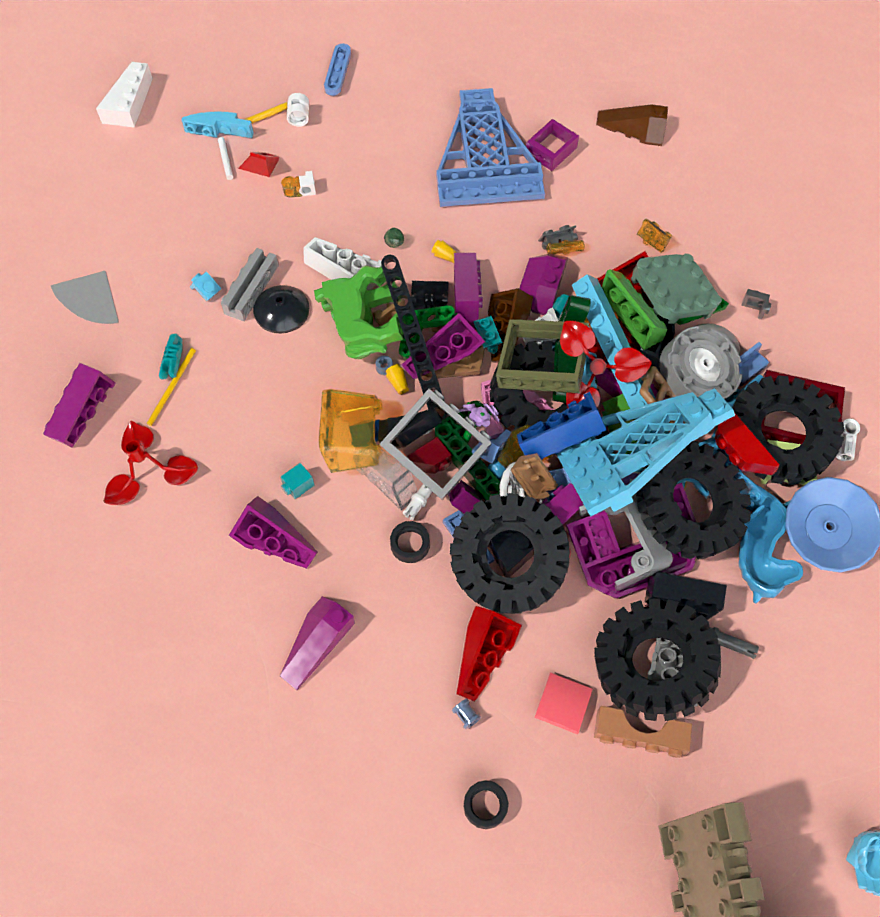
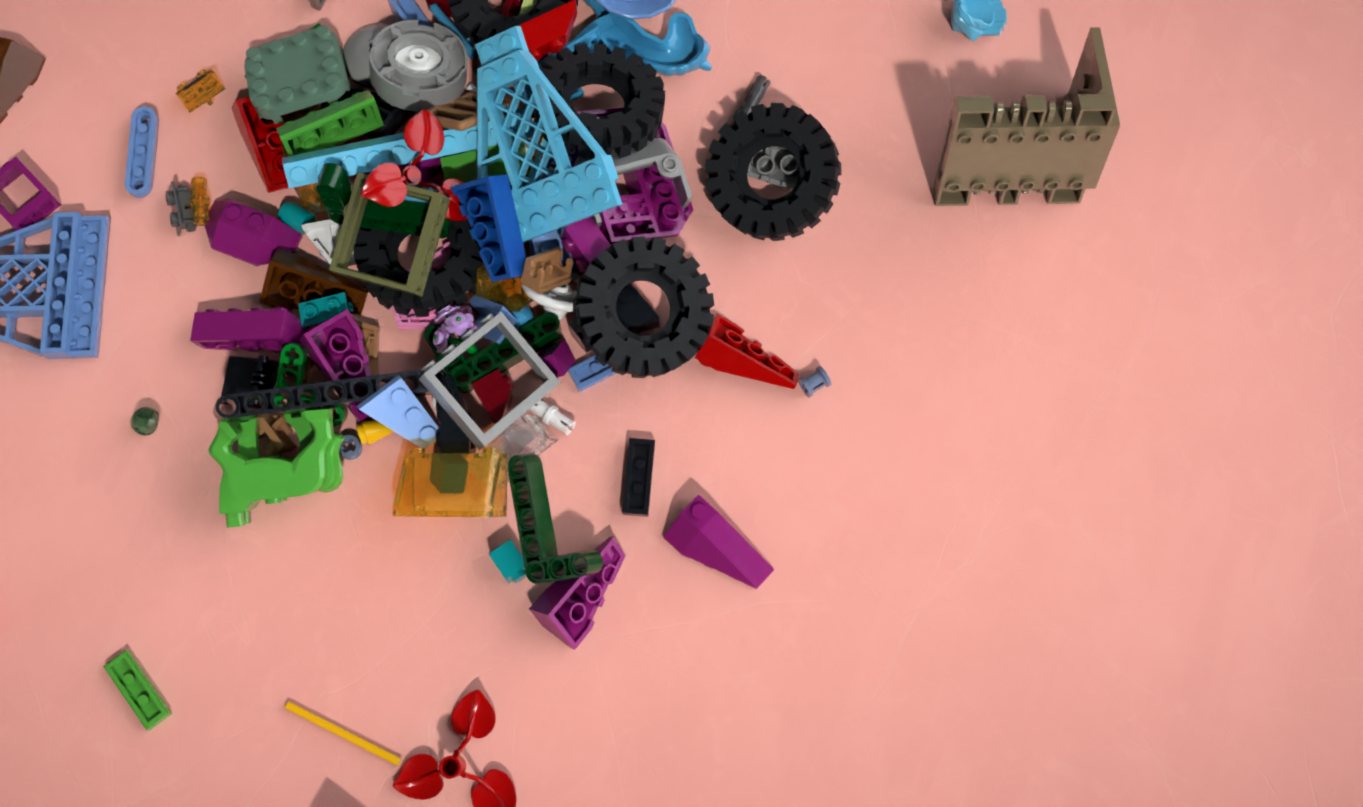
camera: 85 degrees left, 10 degrees up
(171, 357) = (297, 732): teal hinge -> none
(205, 285) = (182, 689): medium azure bracket -> none
(206, 261) = (137, 690): none -> bright green tile
(249, 284) = (191, 623): light grey brick -> none
(284, 315) = (248, 593): black dish -> none
(299, 185) = (24, 551): leg -> none
(317, 492) = (536, 527): none -> dark green beam
(334, 261) = (183, 493): white wedge -> none
(370, 572) = (638, 477): none -> black plate
(408, 387) = (401, 412): none -> light blue wing
(409, 526) = (593, 413): black tyre -> none
(443, 251) = (179, 356): yellow cone -> none
(503, 800) = (915, 352): black tyre -> none
(563, 703) = (807, 279): coral slope -> none
(598, 208) = (141, 152): none -> medium blue plate
(613, 727) = (835, 230): nougat arch -> none
(701, 595) = (701, 129): black wedge -> none

